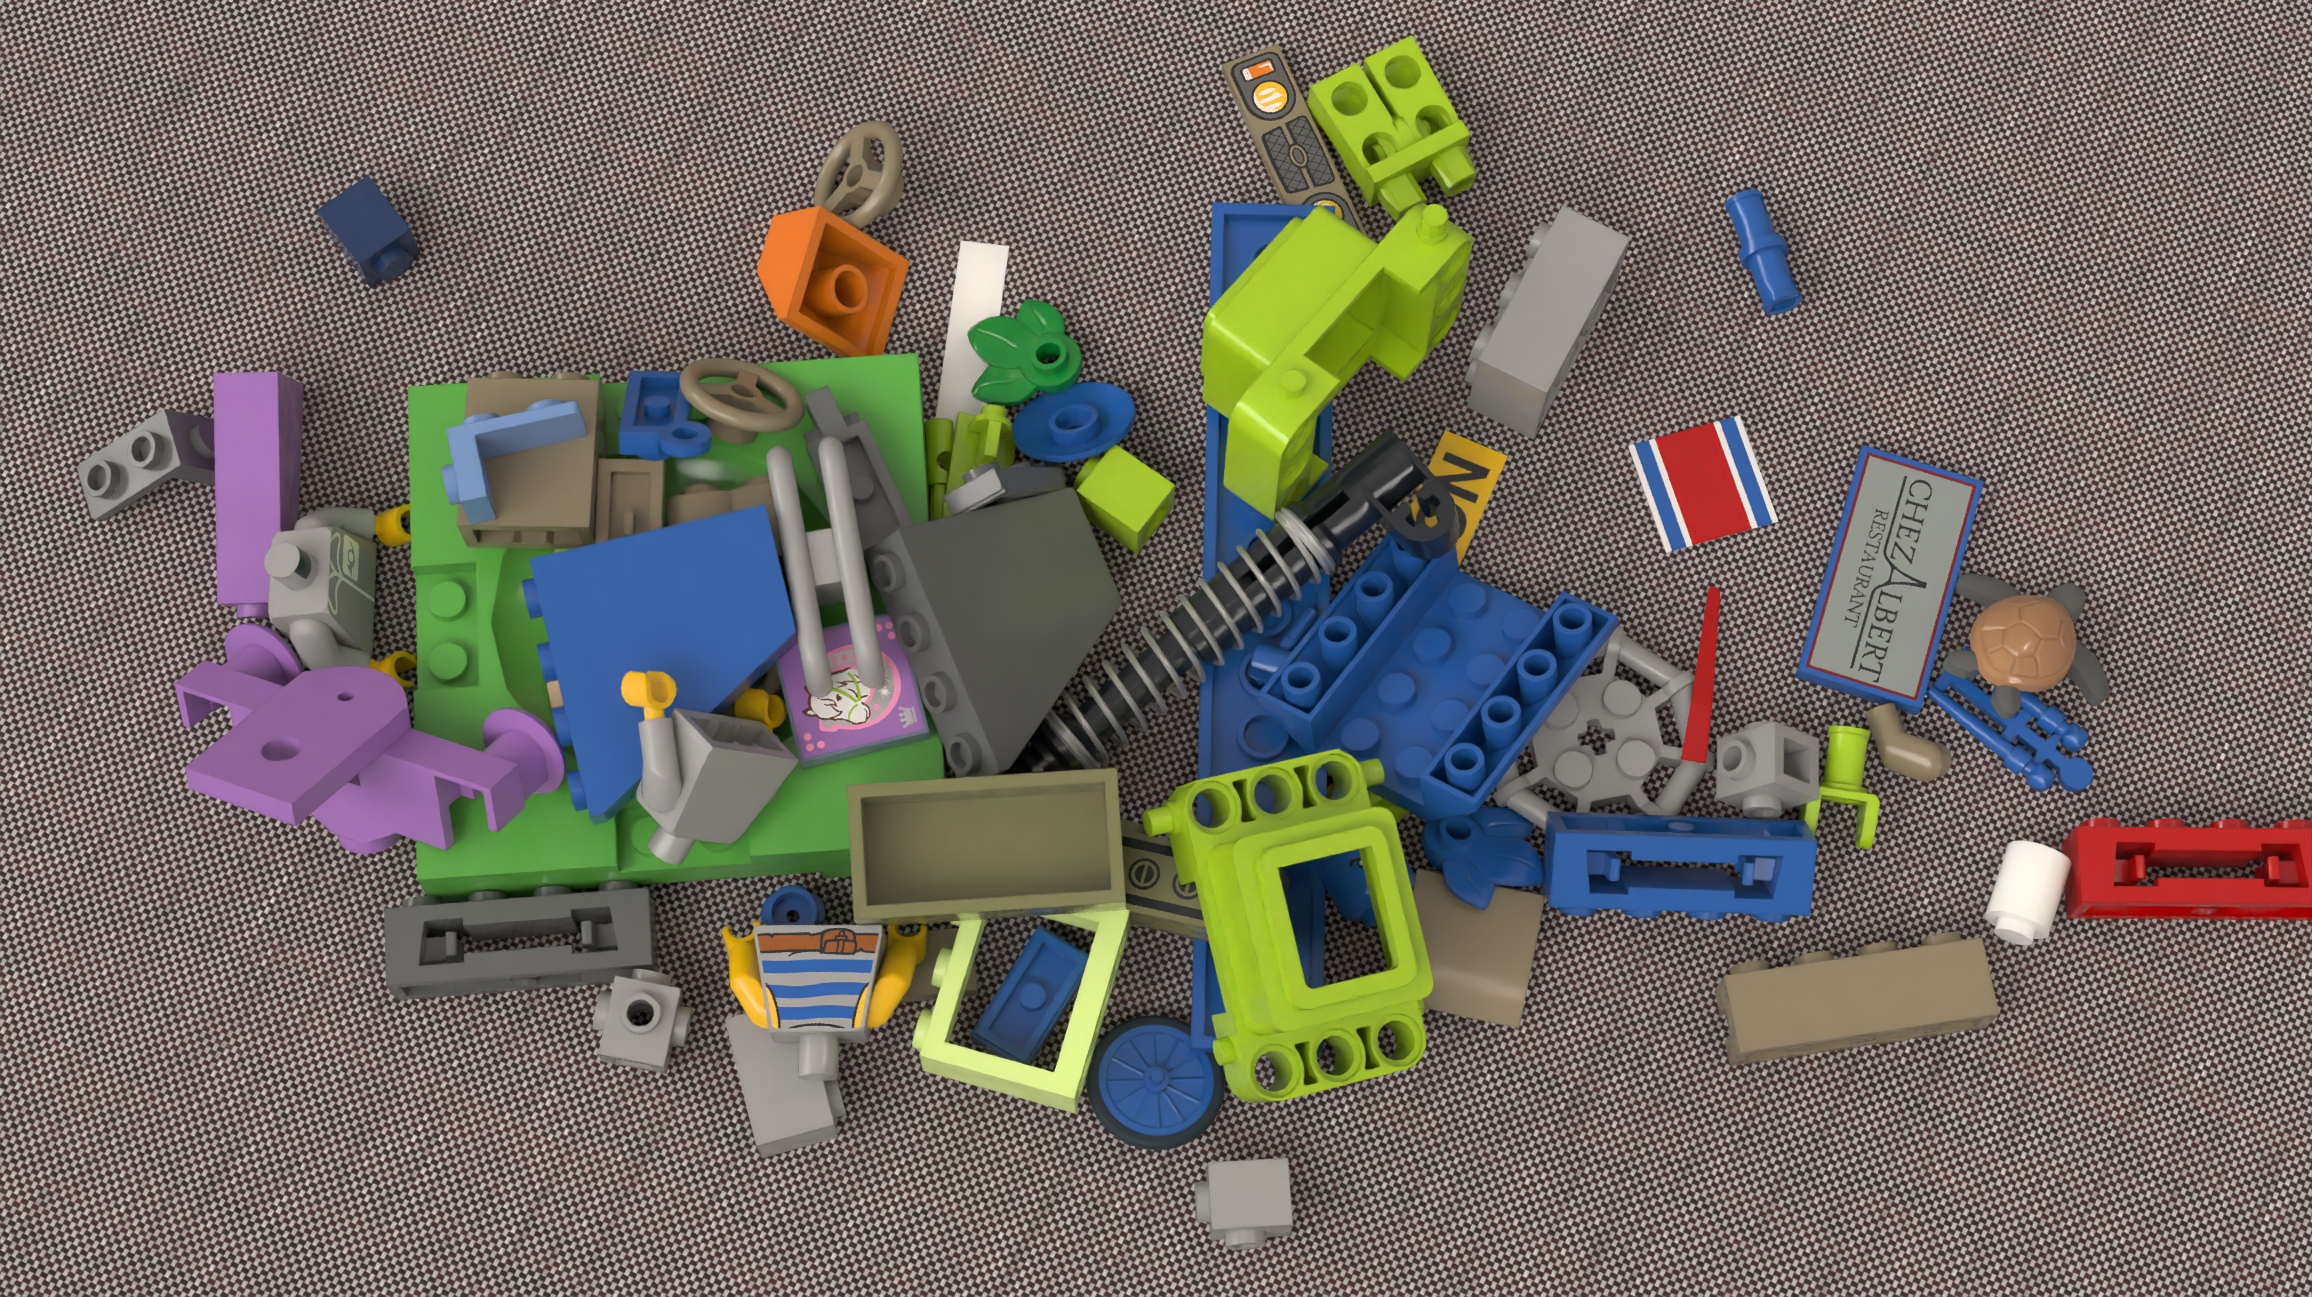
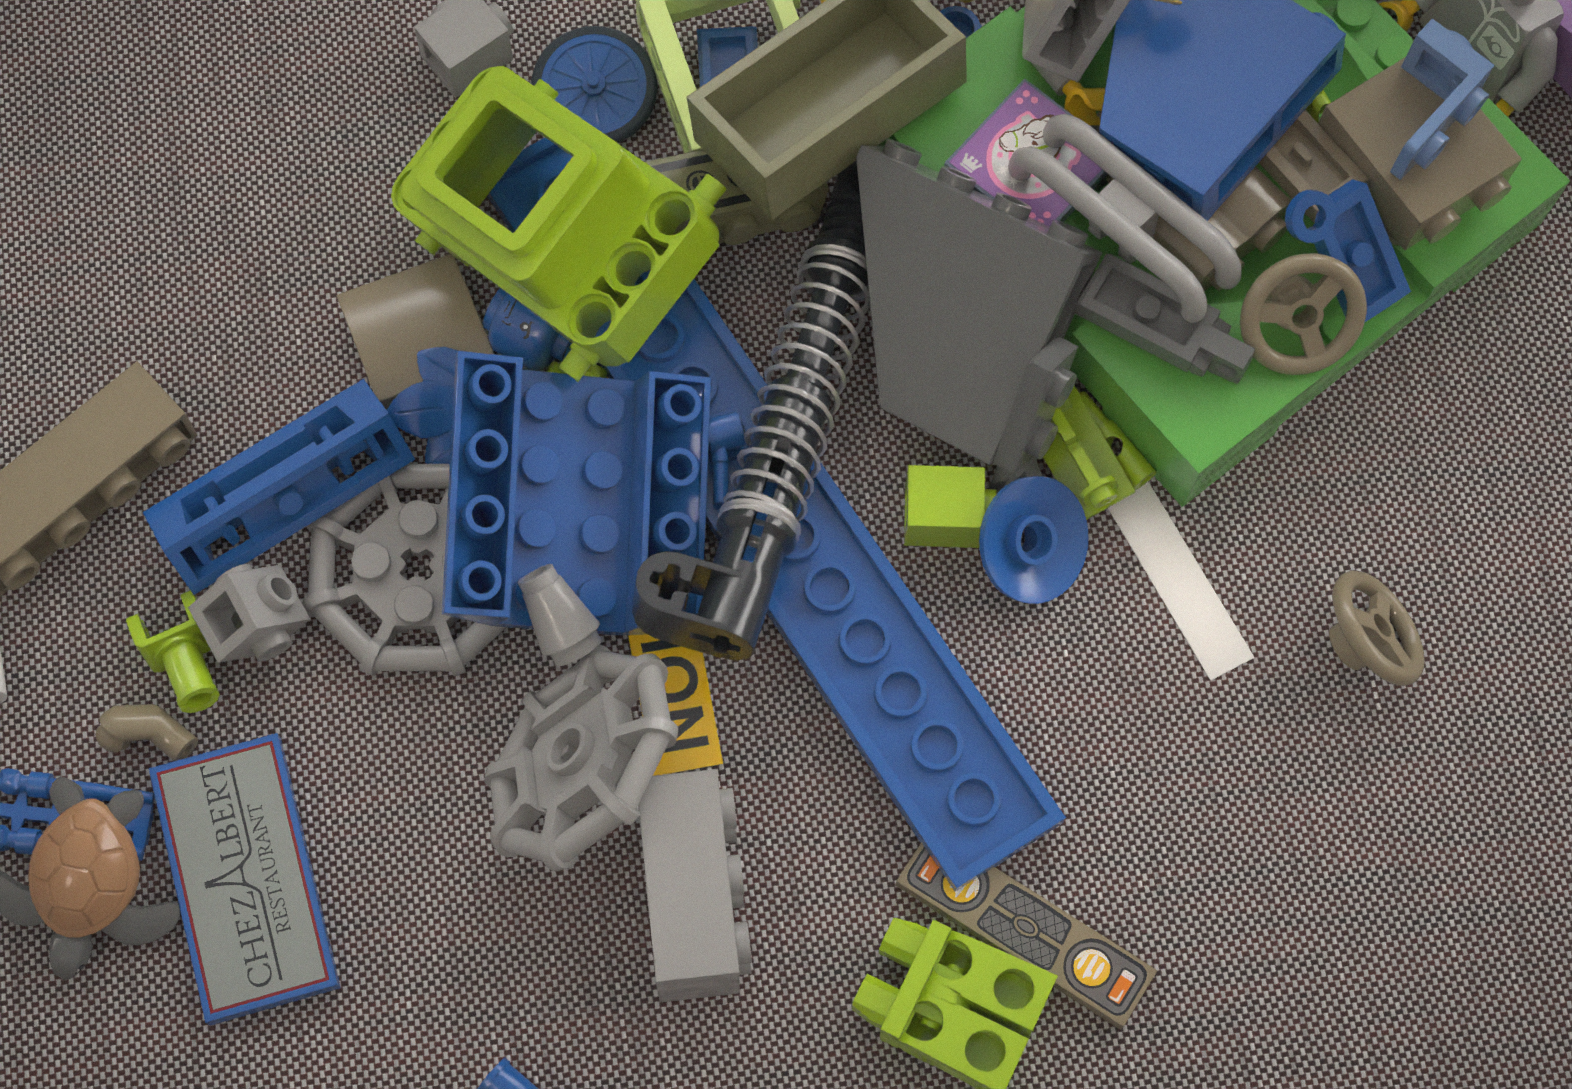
camera: 145 degrees right, 0 degrees up
(831, 281) = (1321, 519): orange slope -> none
(1016, 354) = (1131, 580): green plate -> none
(1308, 323) = (894, 686): lime piece -> none
(1516, 582) = (558, 616): none -> light grey cone
(1548, 443) = (580, 757): none -> light grey plate
(1699, 717) = (339, 635): red sticker -> none
(1703, 484) = (456, 871): sticker -> none

